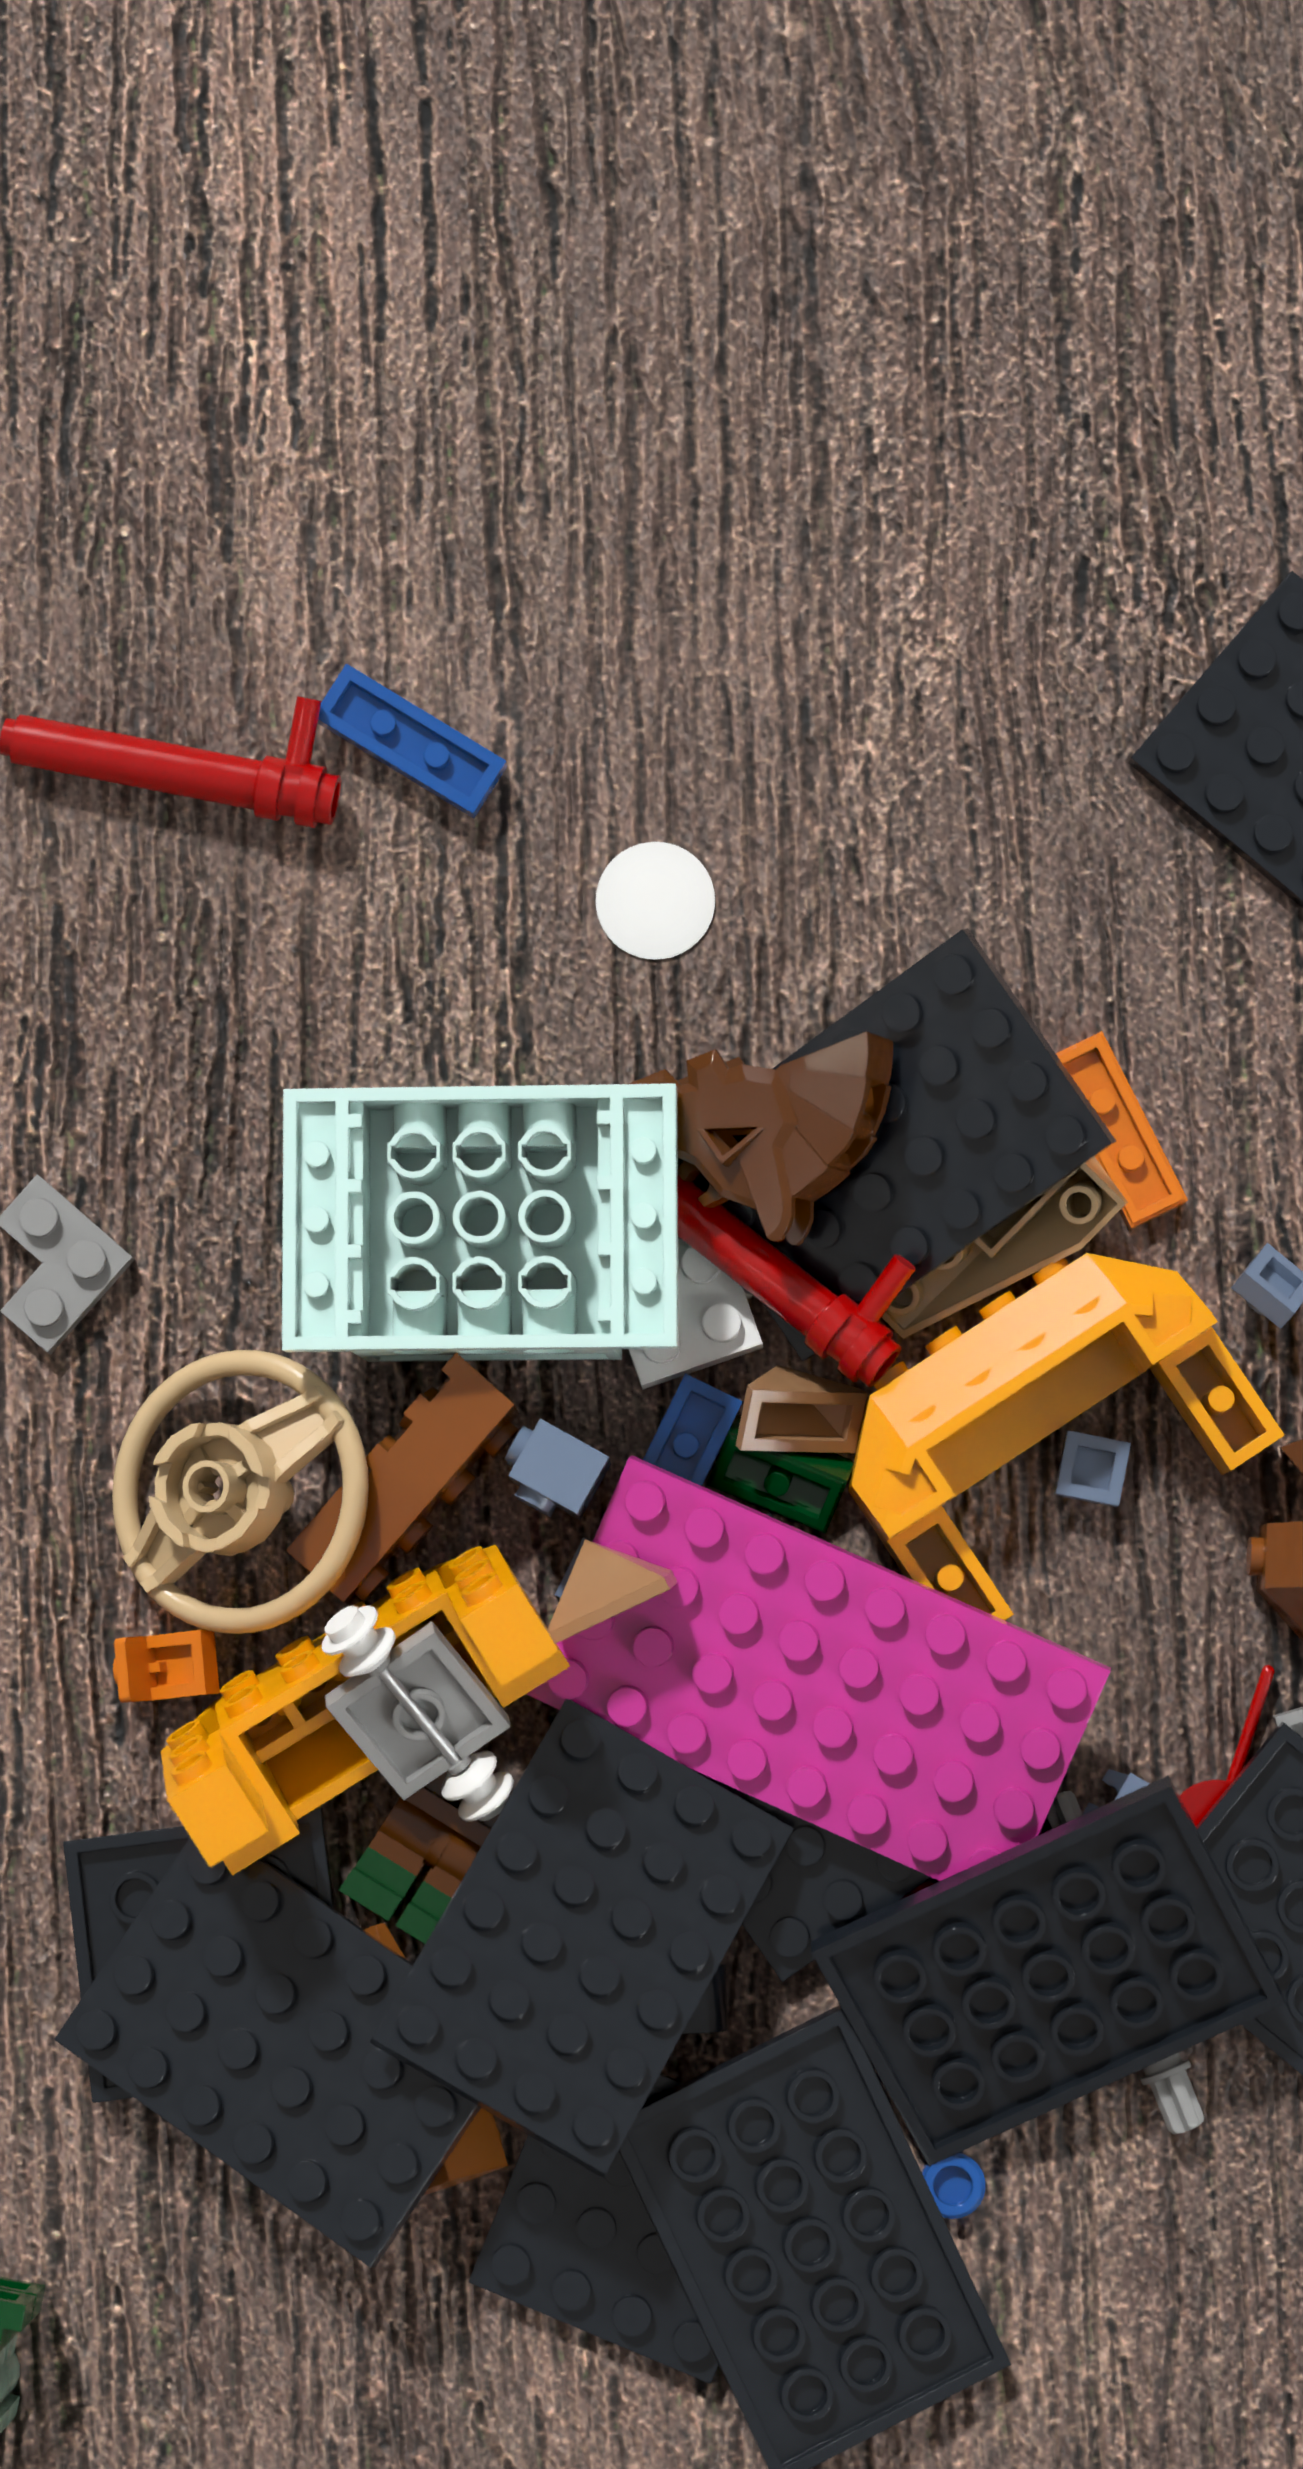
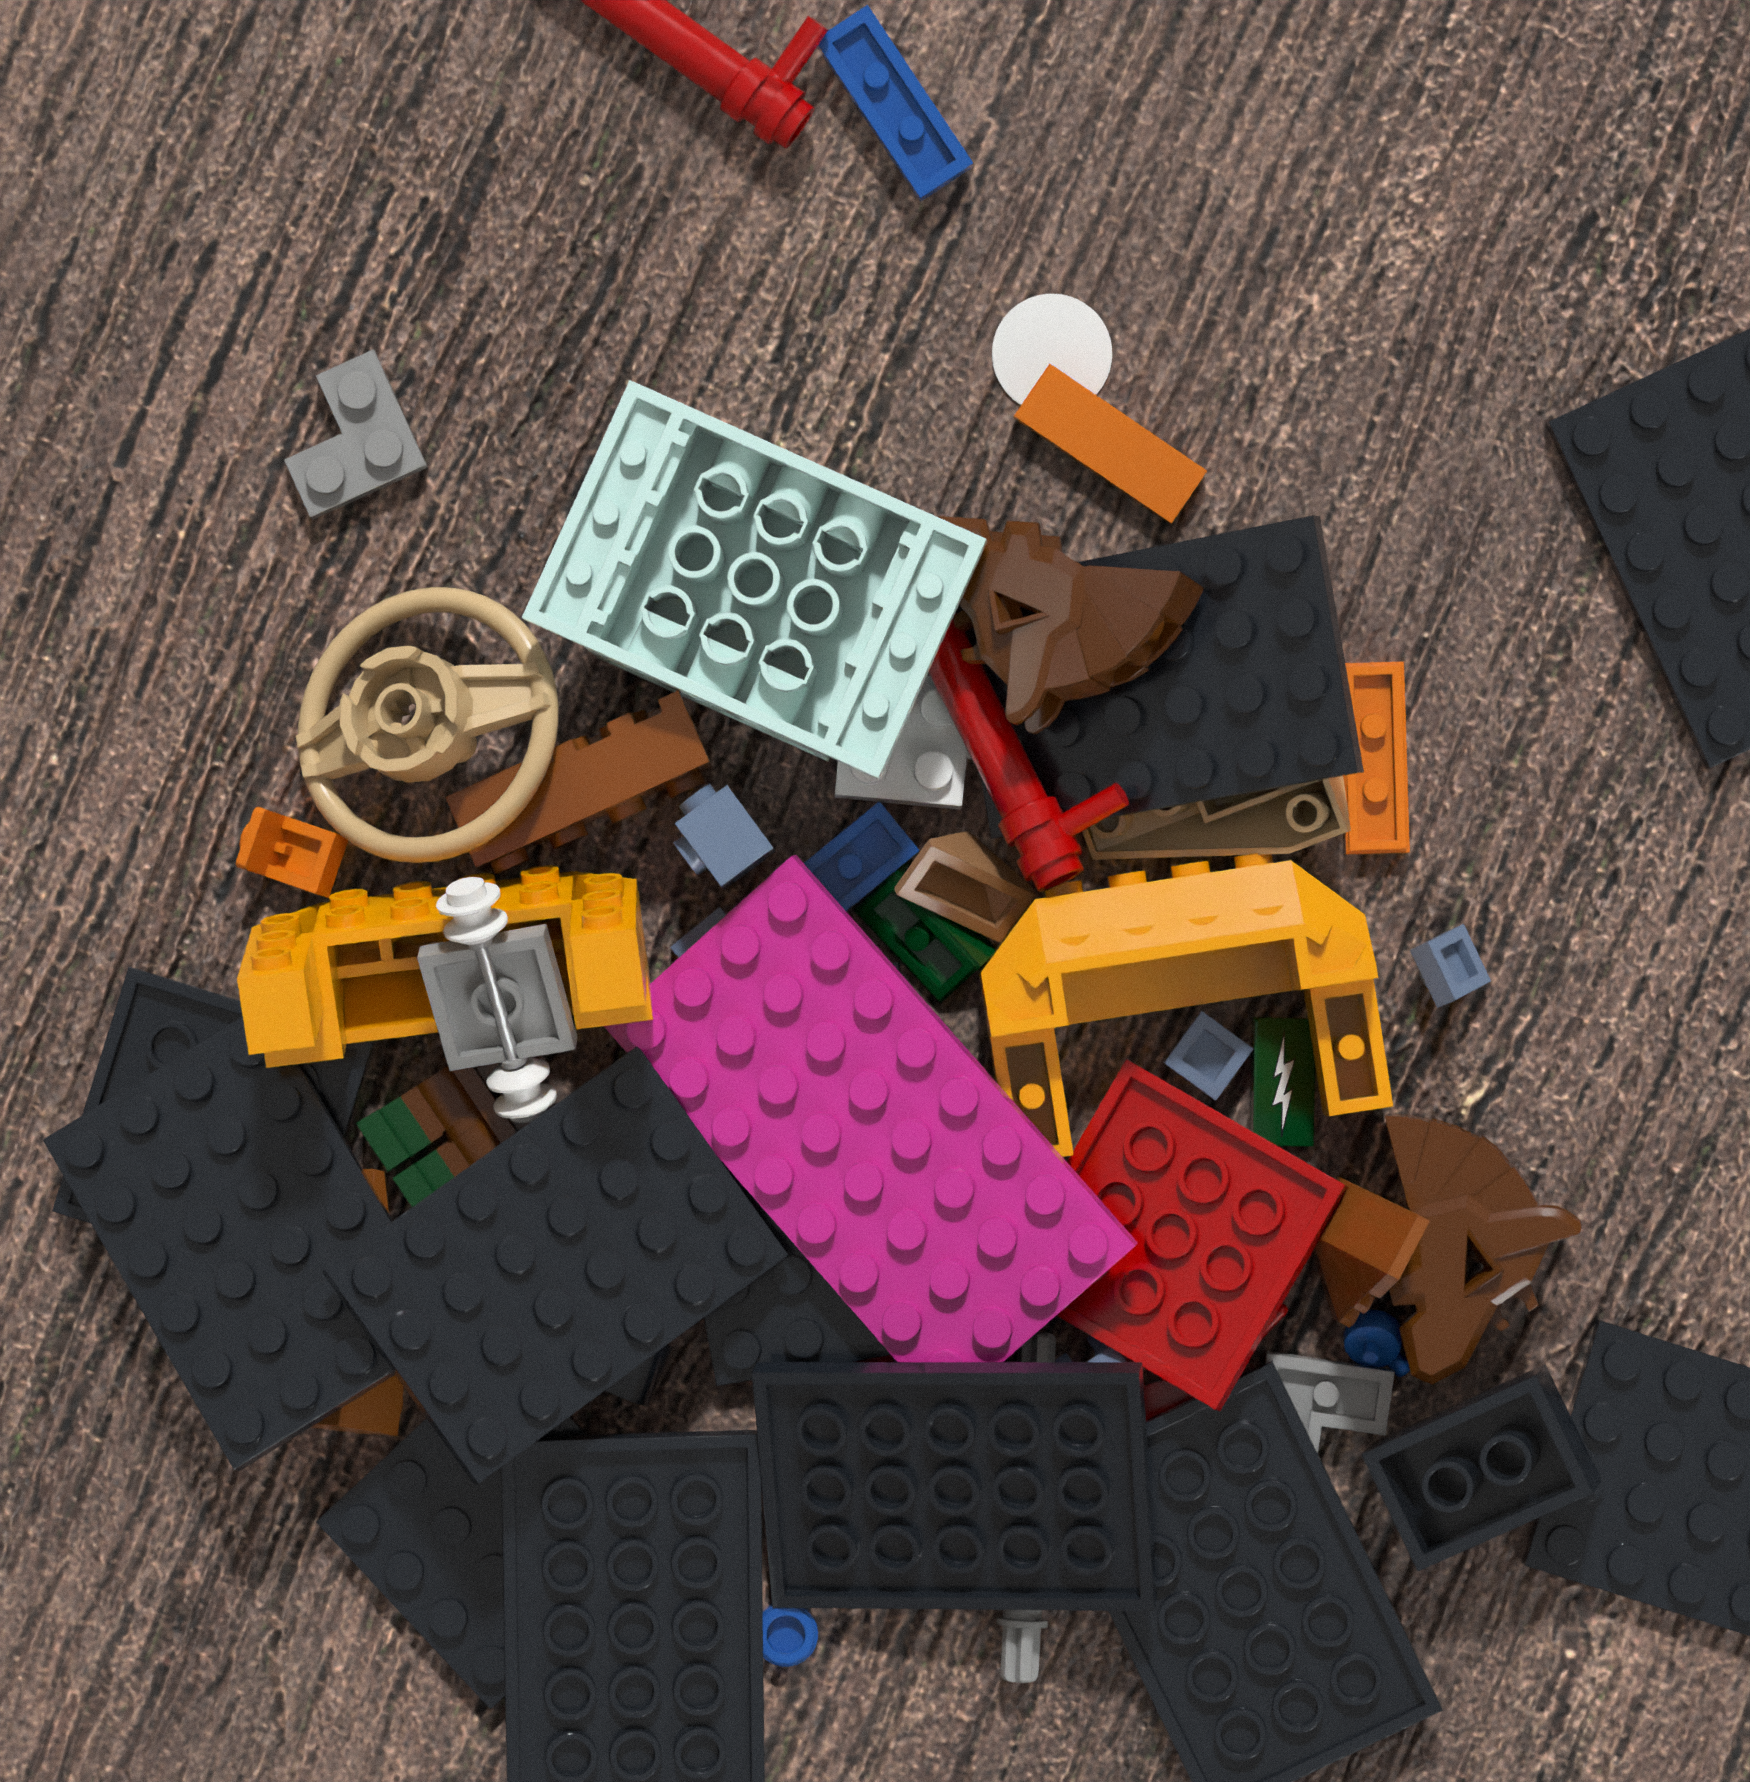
camera: 20 degrees right, 5 degrees up
(604, 1586) = (716, 963): medium nougat slope -> none
(745, 956) = (1110, 444): none -> orange tile
(1170, 1463) = (1282, 1081): none -> dark green slope
(1178, 1621) = (1216, 1230): none -> red plate

